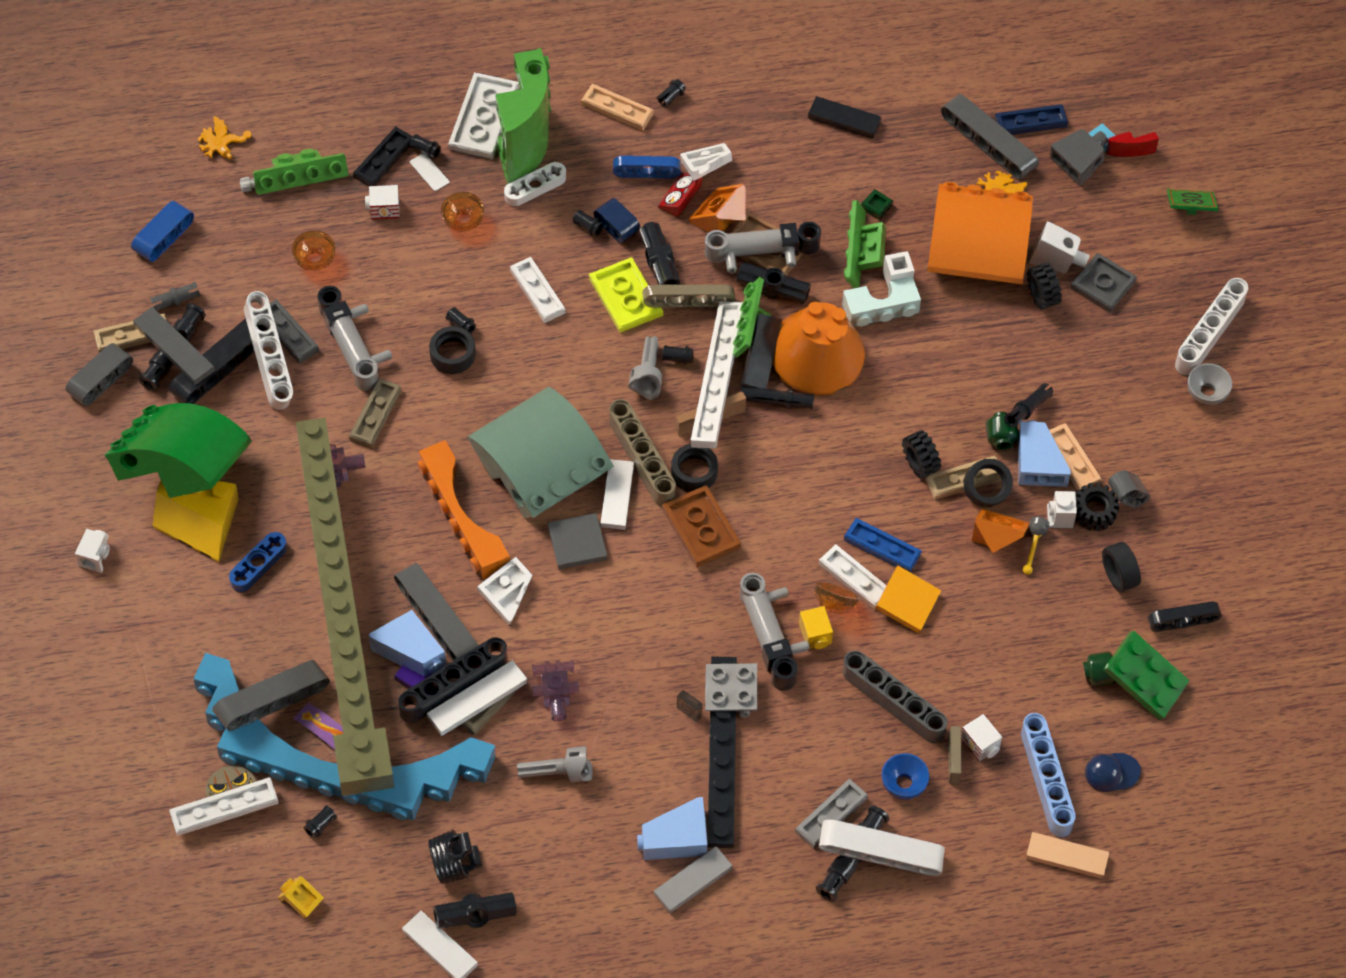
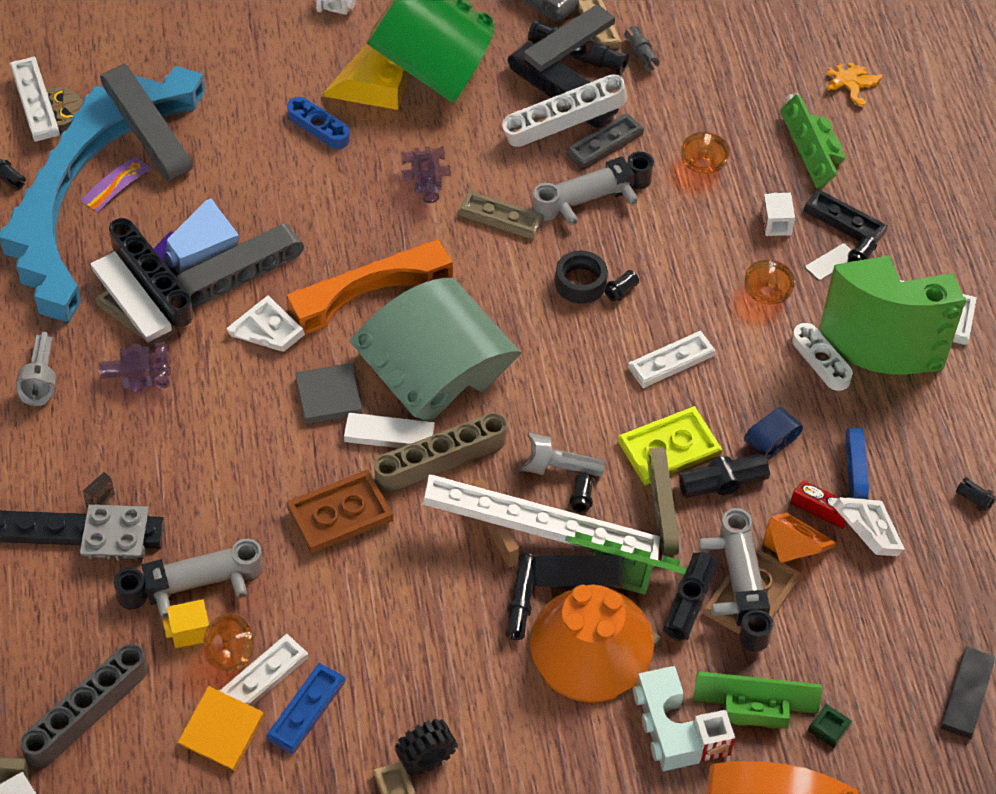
camera: 90 degrees right, 5 degrees down
(162, 231) = (723, 35): blue beam -> none
(361, 749) = (61, 185): olive piece -> none
(587, 222) = (768, 404): black pin -> none
(617, 107) = (948, 440): light nougat tile -> none
(688, 483) = (410, 524): black tyre -> none

